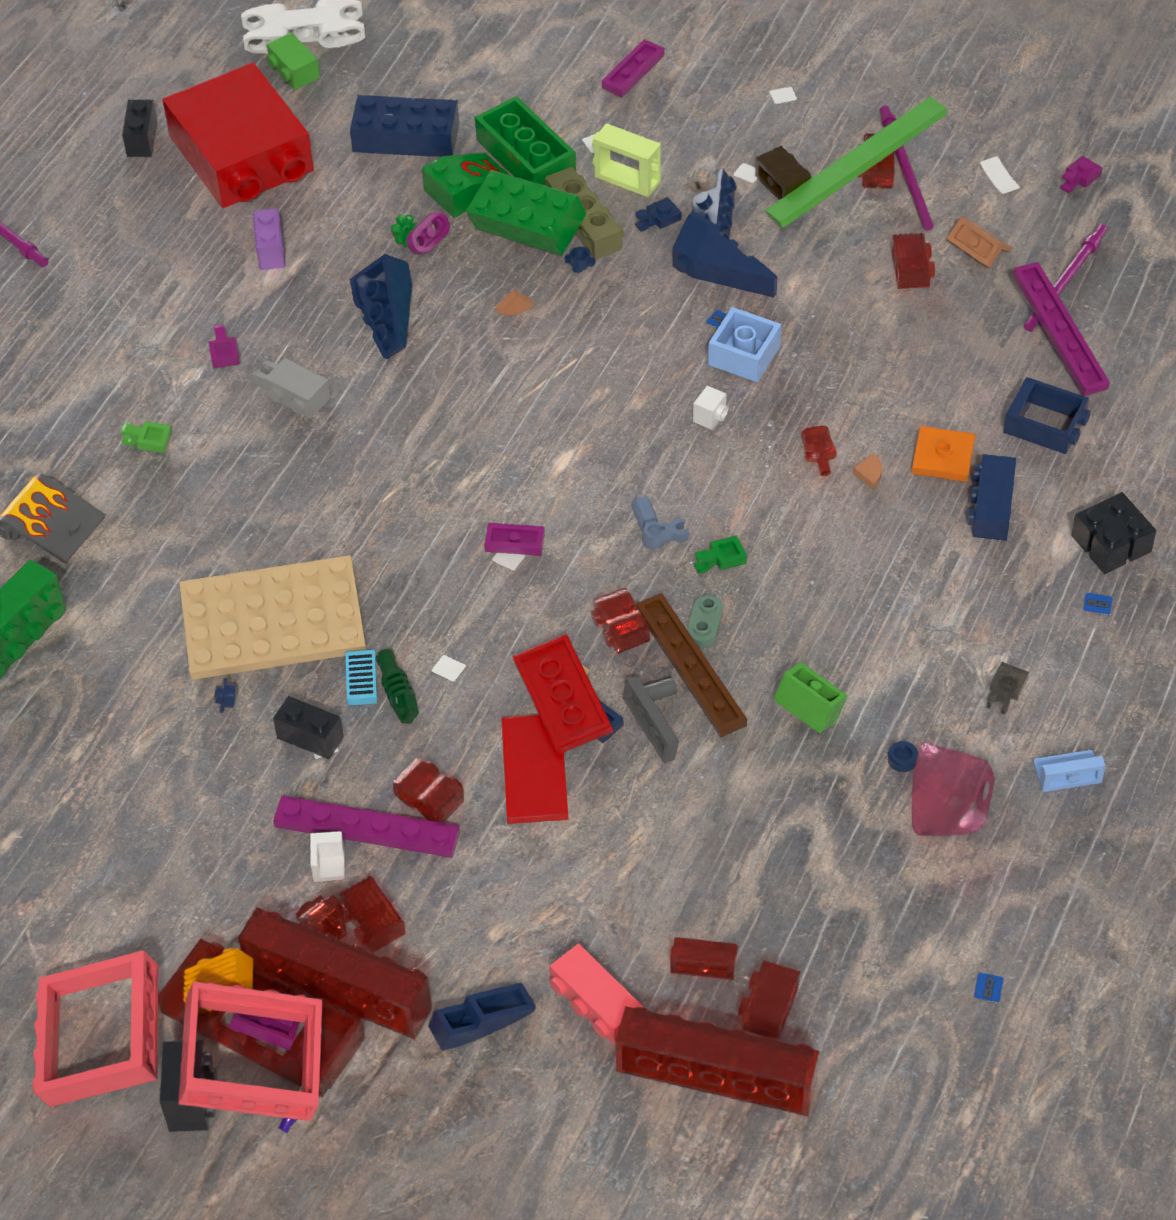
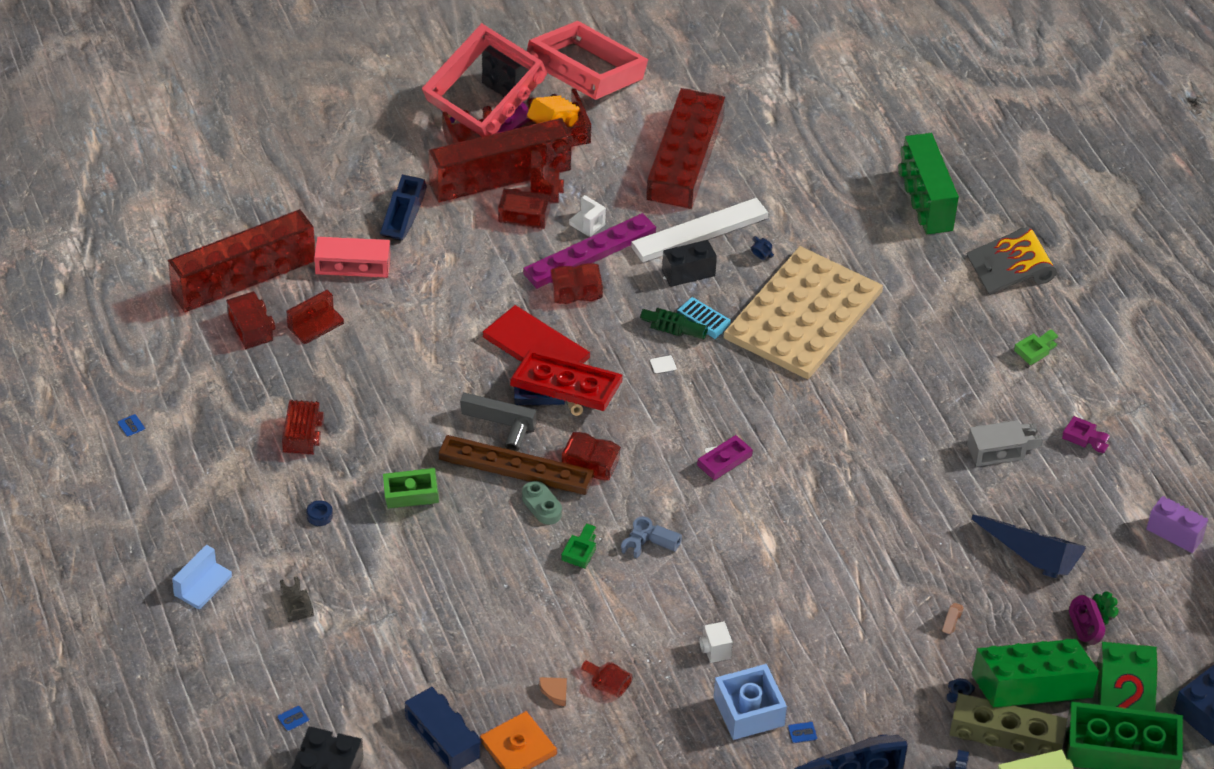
camera: 130 degrees right, 5 degrees down
(142, 852) = (685, 148): none -> clear red brick
(245, 766) = (700, 229): none -> white tile
(839, 841) = (302, 426): none -> clear red brick
(945, 788) = (259, 498): clear pink piece -> none

